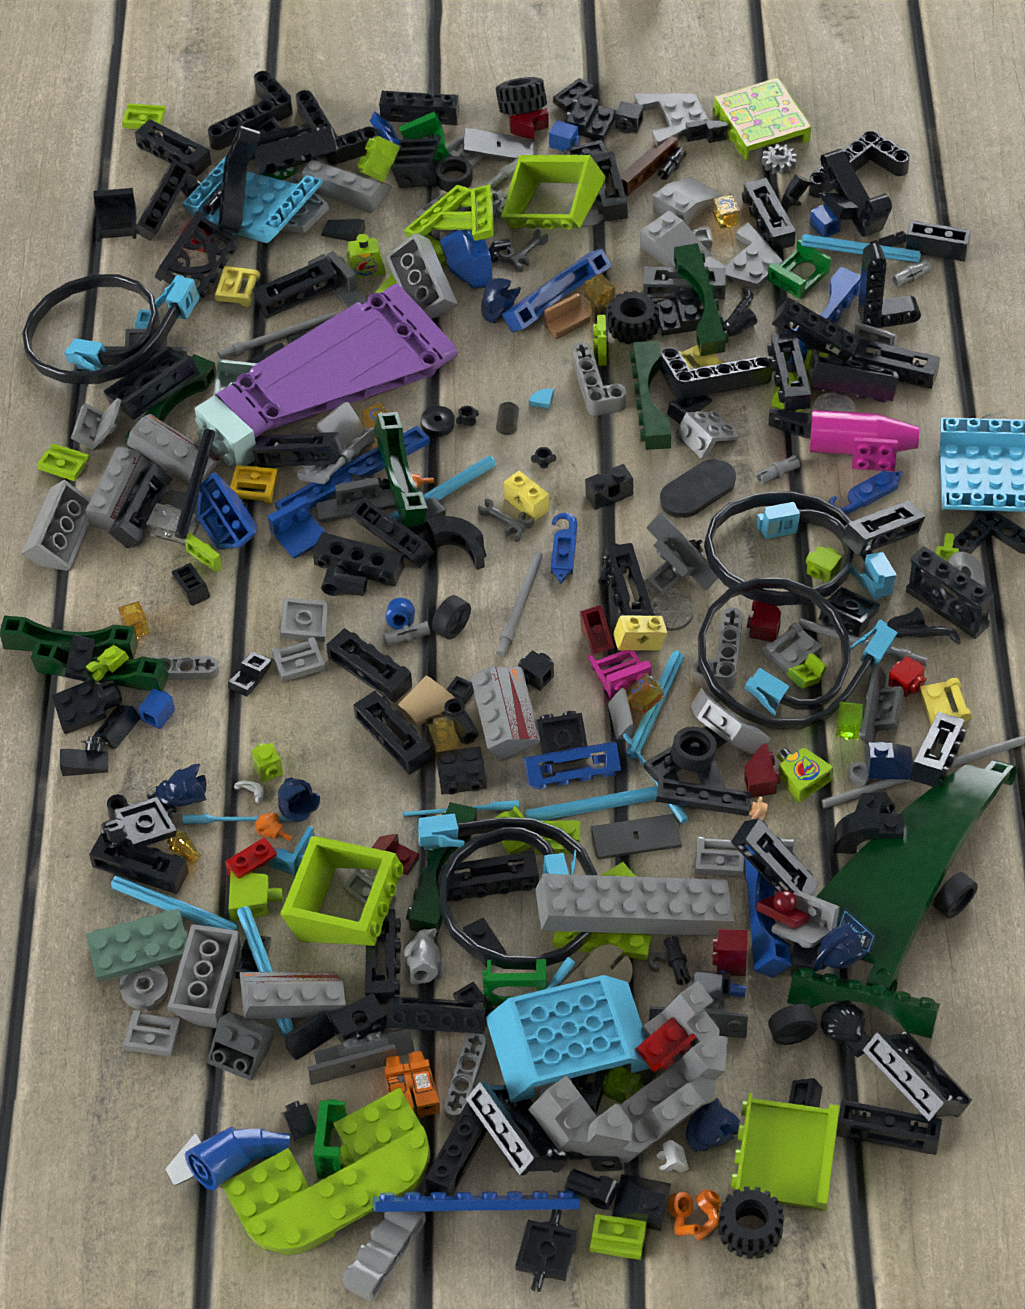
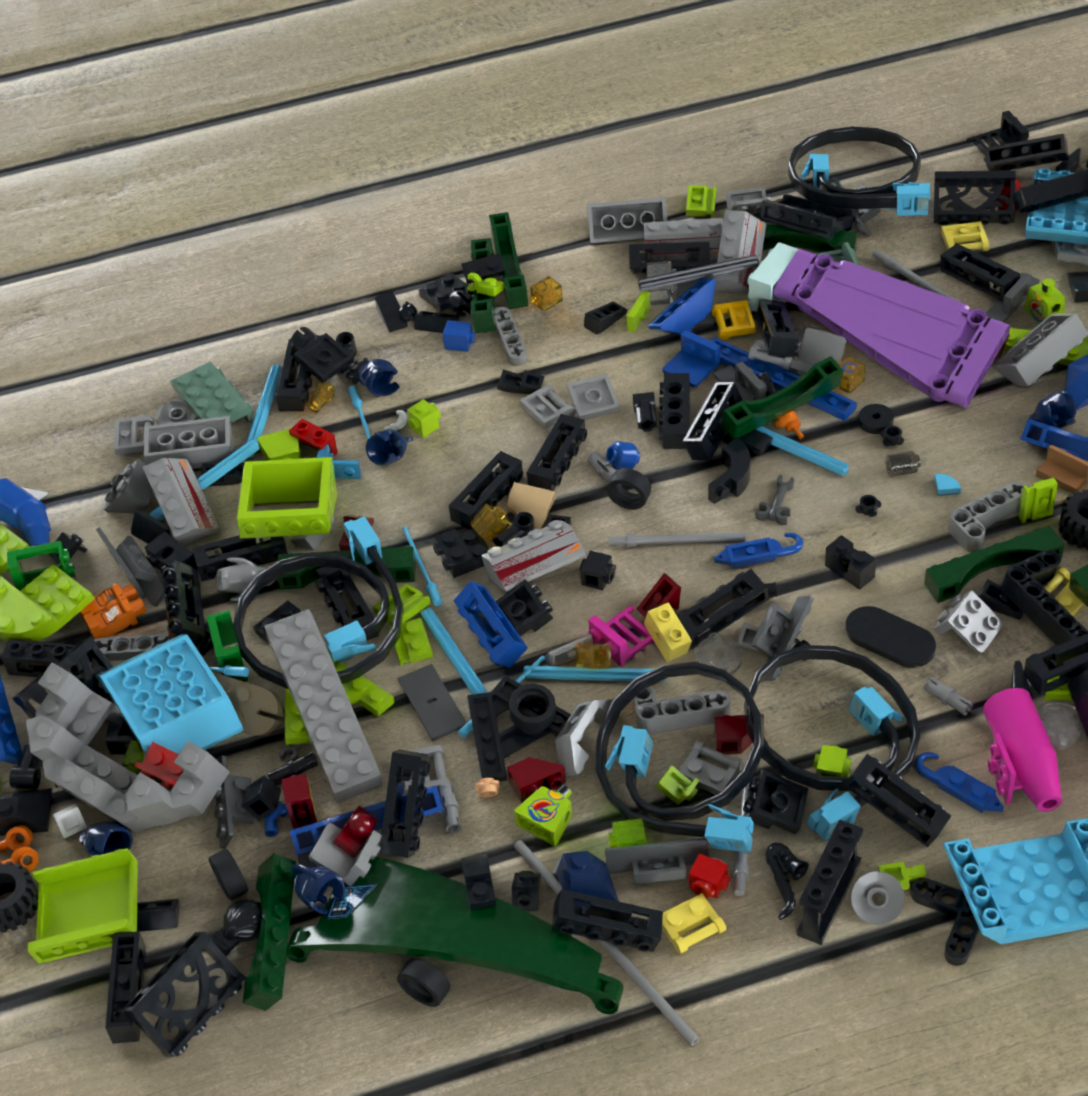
camera: 75 degrees right, 5 degrees down
(269, 826) = (358, 443): orange piece -> none
(526, 495) = (807, 503): light yellow brick -> none

